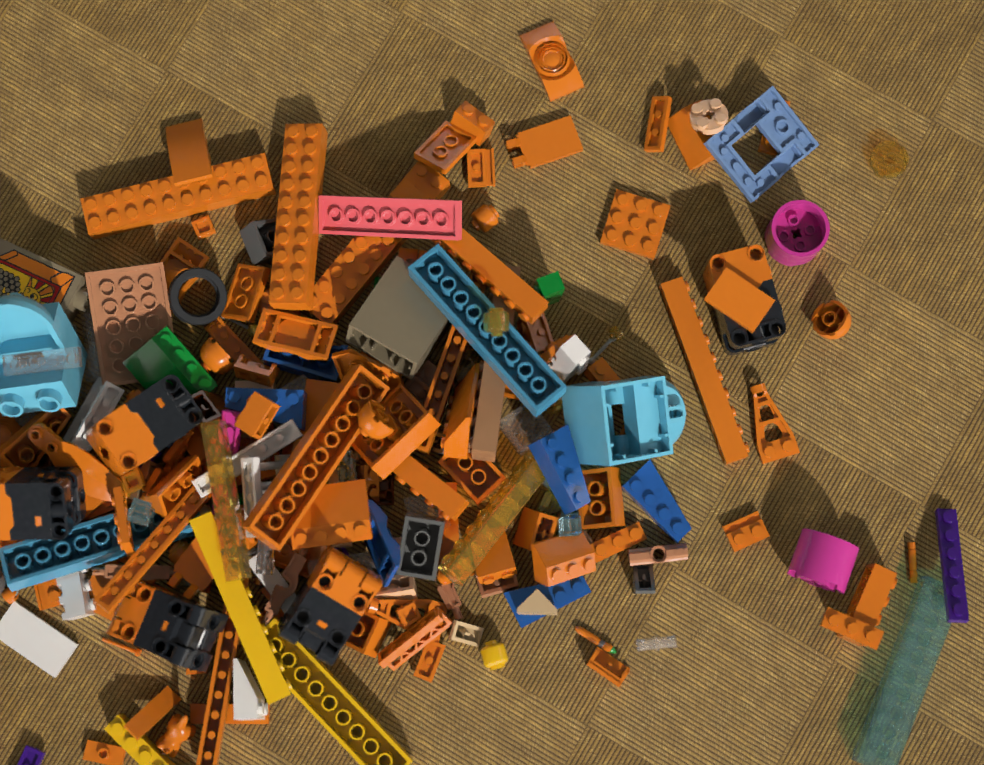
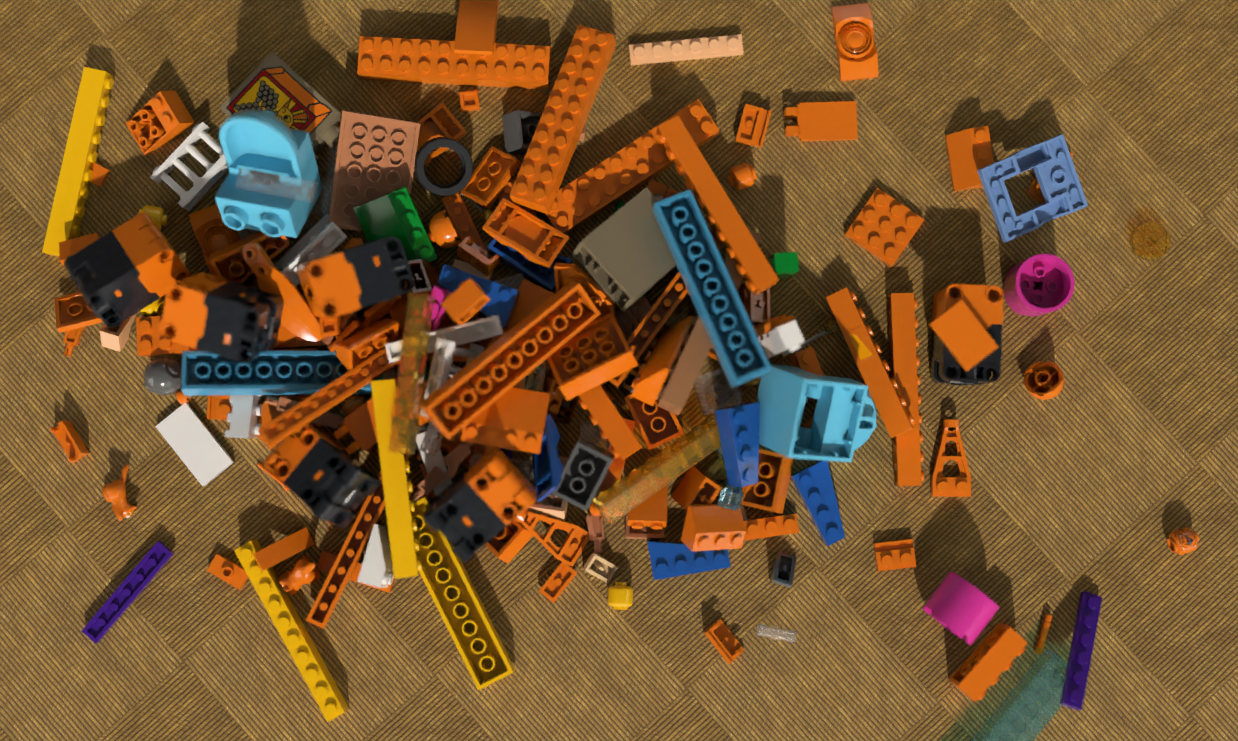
camera: 15 degrees right, 5 degrees up
(124, 533) = (308, 362): orange plate -> none
(141, 512) = (327, 360): clear light blue leg -> none
(374, 421) = (576, 343): orange cylinder -> none
(390, 217) = (652, 148): coral plate -> none
(395, 116) = (686, 49): none -> light nougat plate
(408, 613) = (551, 533): orange tile -> none
(413, 636) = (549, 558): orange fence -> none
(445, 147) = (725, 95): orange plate -> none
(473, 121) = (758, 79): orange brick -> none
(496, 321) = (723, 284): clear yellow head -> none
(537, 605) = (676, 564): tan slope -> none
(594, 639) = (720, 612): orange piece -> none
(657, 124) = (937, 136): orange plate -> none
(661, 355) = (870, 363): none -> orange brick
(671, 553) = (816, 552): nougat piece -> none
(709, 107) = (996, 136): light nougat plate -> none
(851, 628) = (967, 681): orange plate -> none

